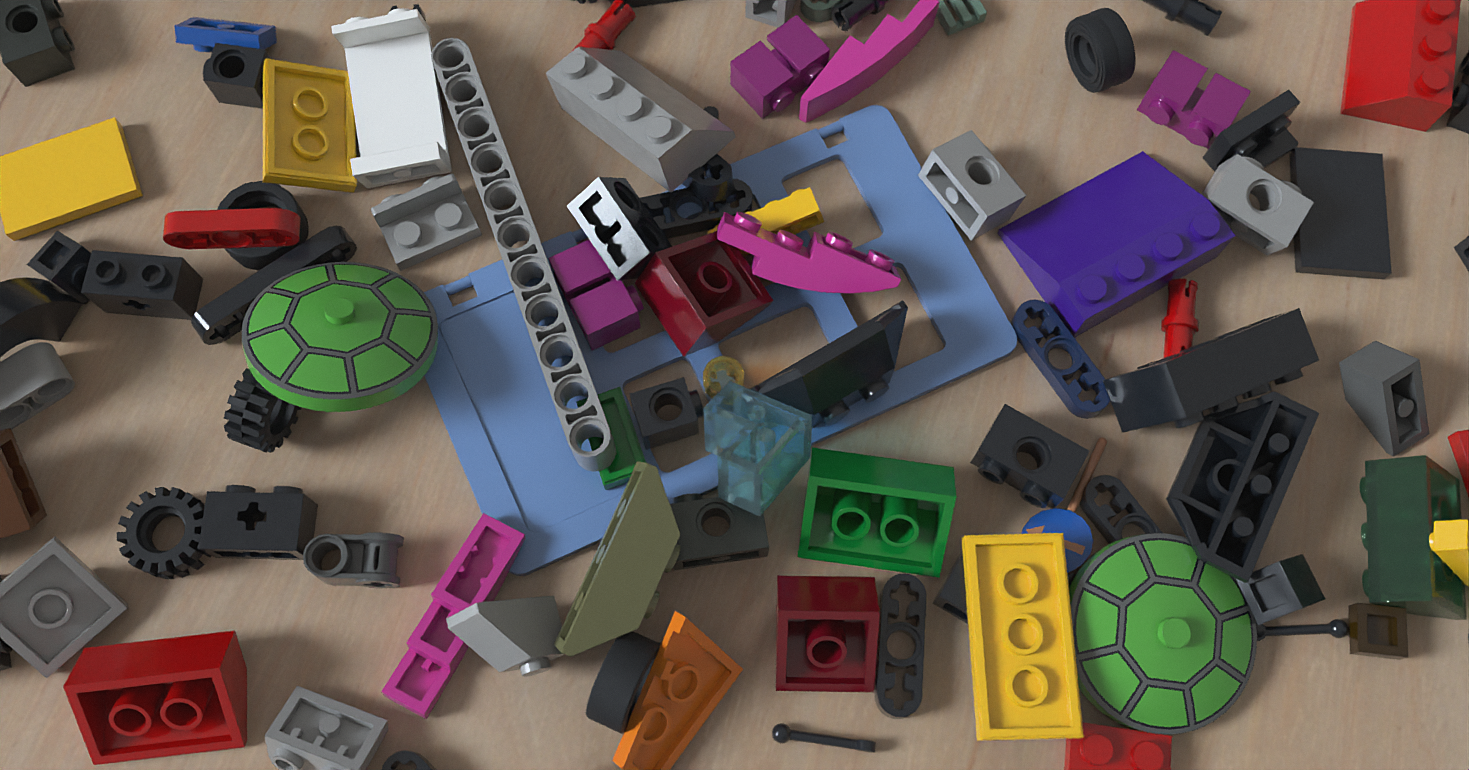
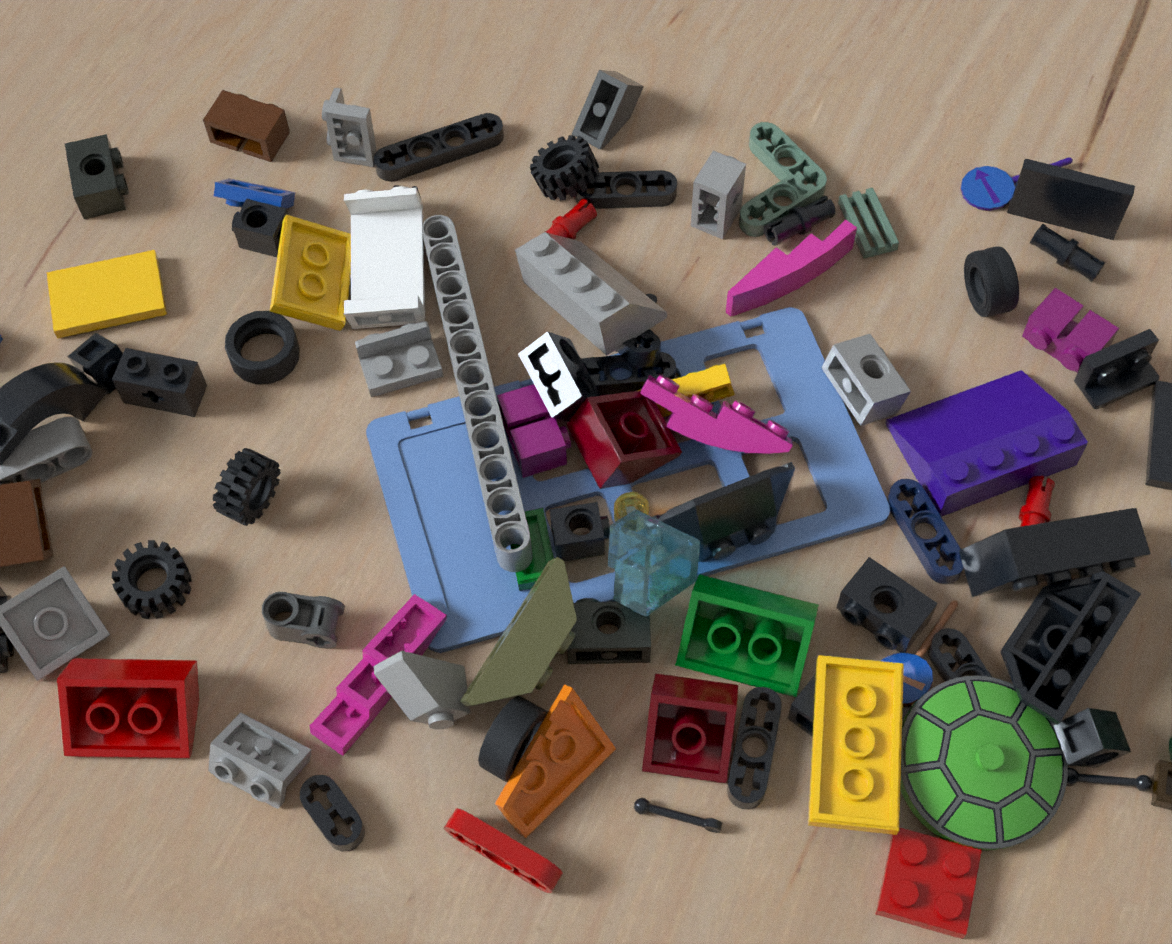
camera: 10 degrees right, 10 degrees down
(226, 313) = (266, 395): black beam -> none
(231, 228) = (240, 343): red beam -> none
(231, 516) = (226, 581): black brick -> none
(340, 336) = (317, 437): bright green dish -> none
(774, 77) = (707, 277): magenta piece -> none
(1280, 204) = (1115, 442): light grey brick -> none

